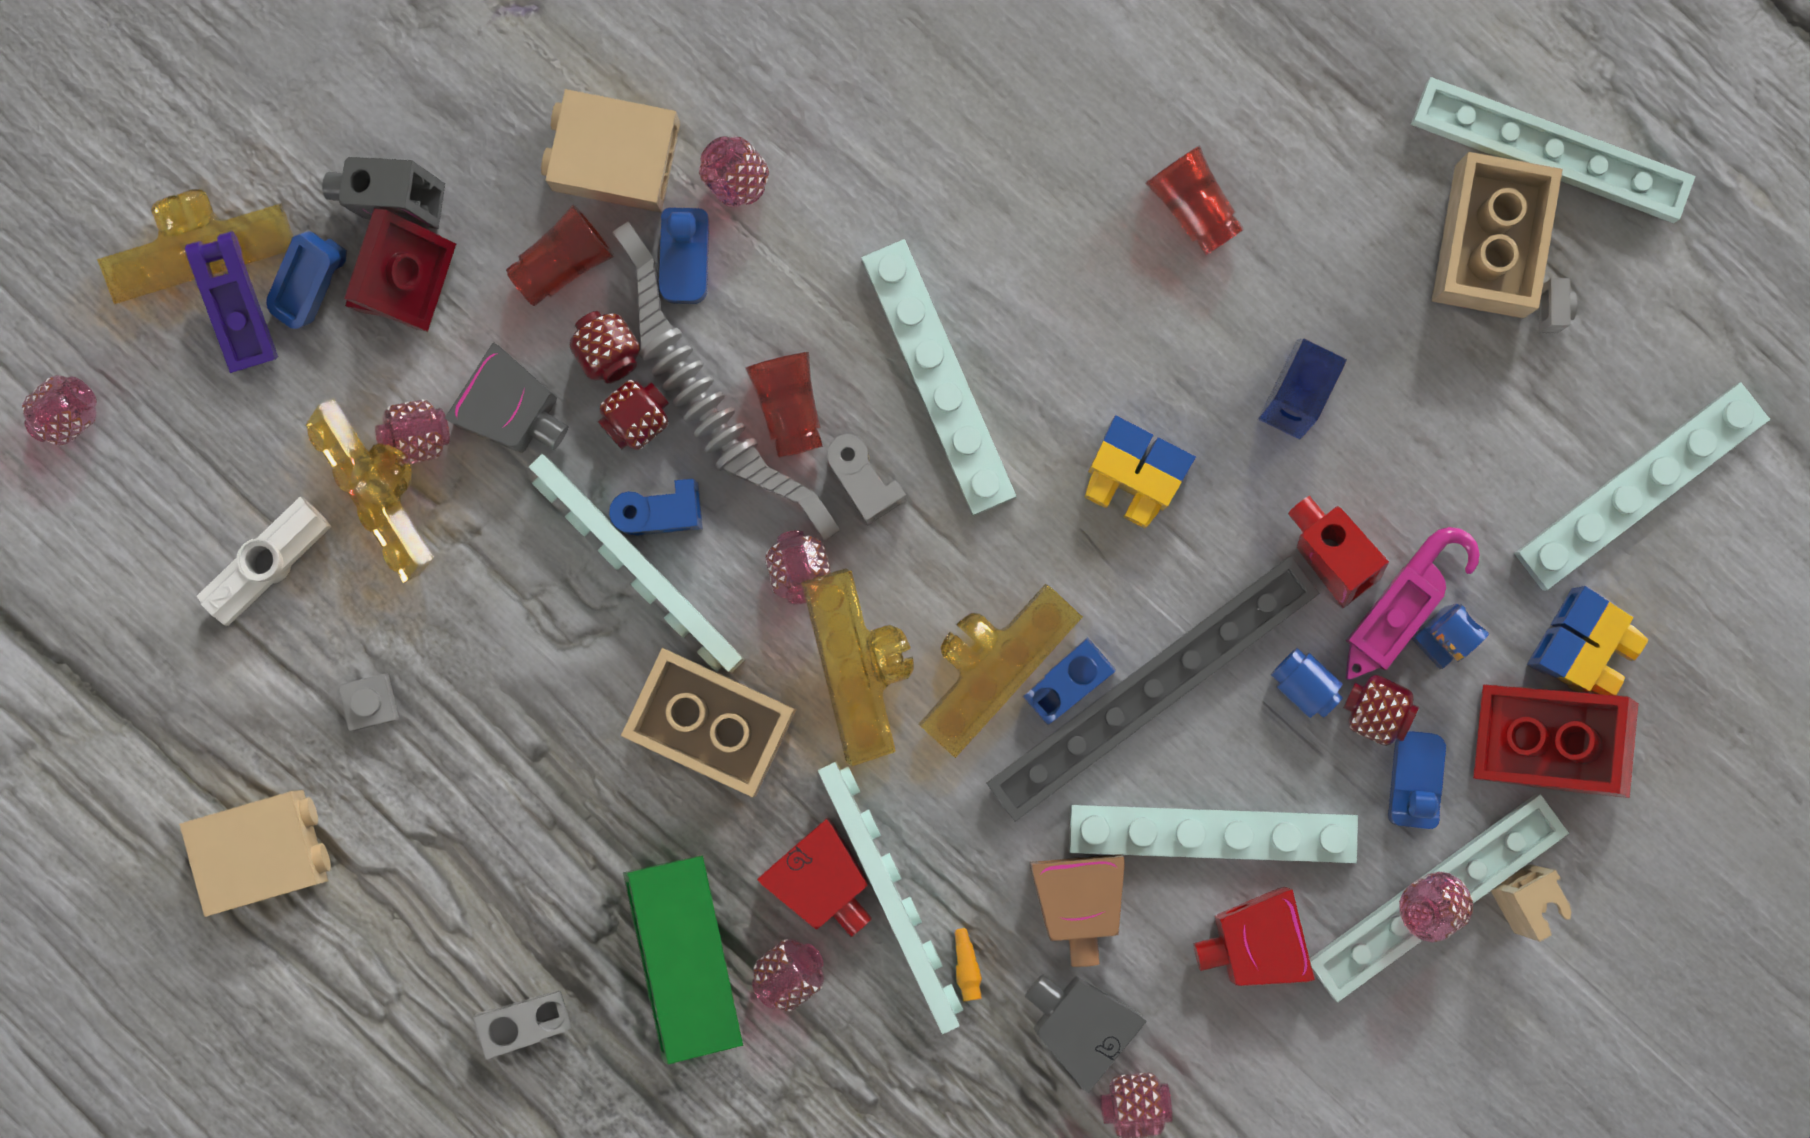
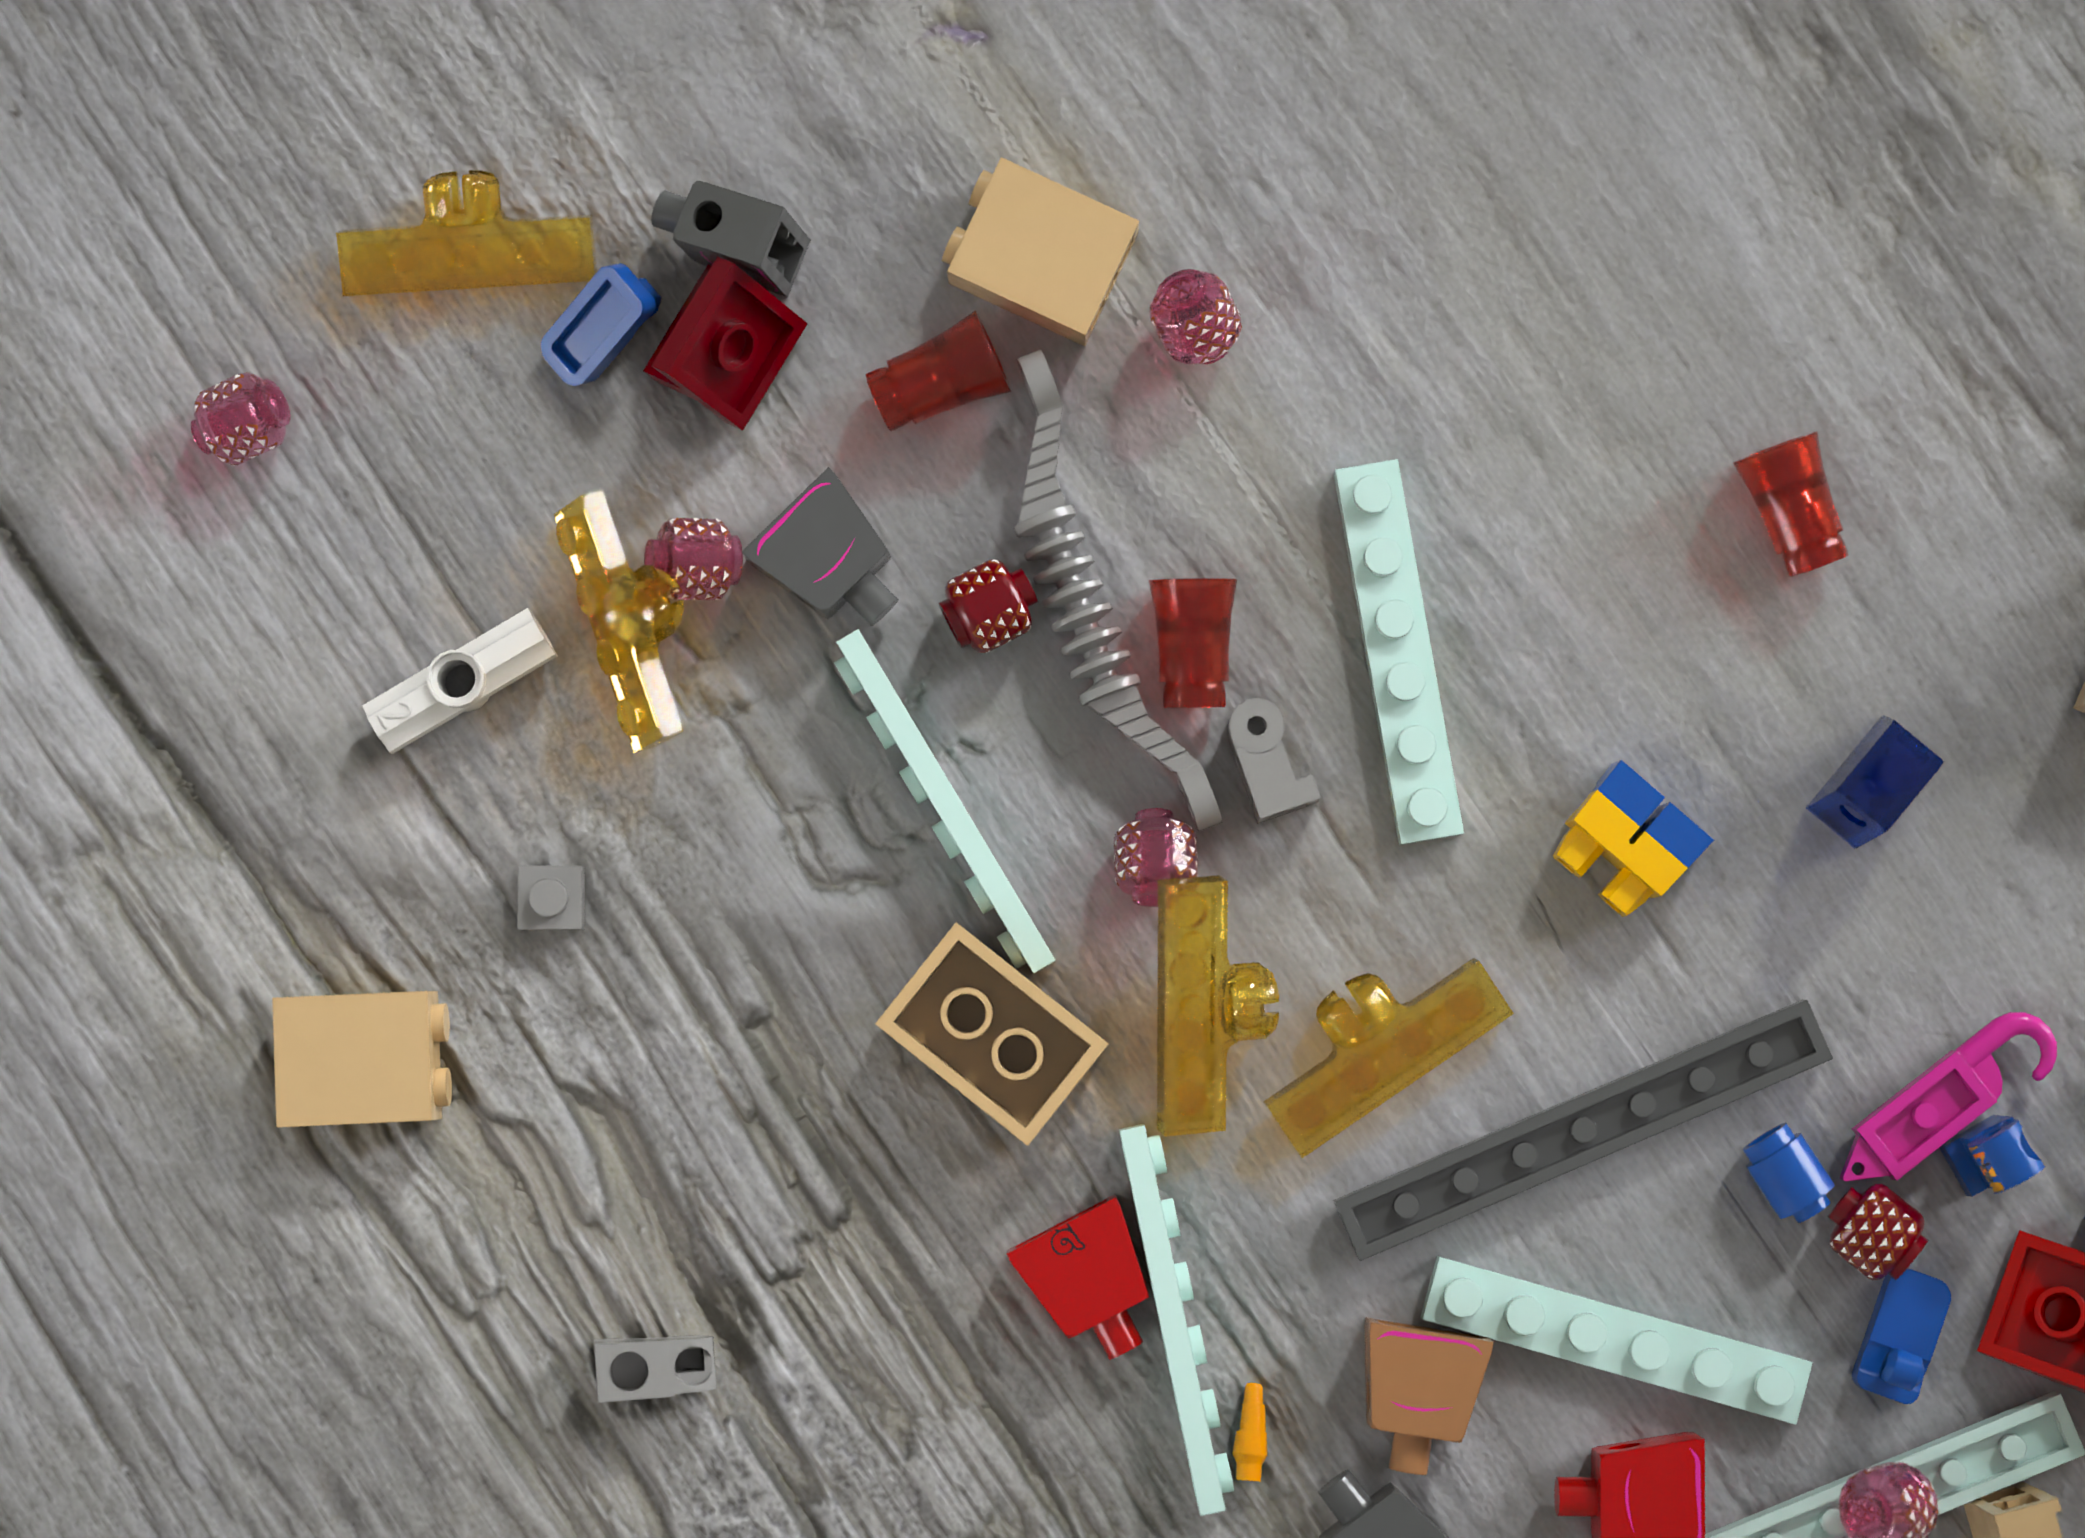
camera: 15 degrees right, 0 degrees up
(231, 303) = (498, 334): dark purple plate -> none
(604, 347) = (971, 507): dark red head -> none
(658, 513) = (987, 743): blue leg -> none
(682, 959) = (882, 1334): green brick -> none
(684, 255) = (1102, 410): blue piece -> none
(788, 975) = (1016, 1389): clear pink head -> none
(1069, 681) = (1475, 1094): blue leg -> none
(1345, 568) = (1873, 1034): red torso -> none

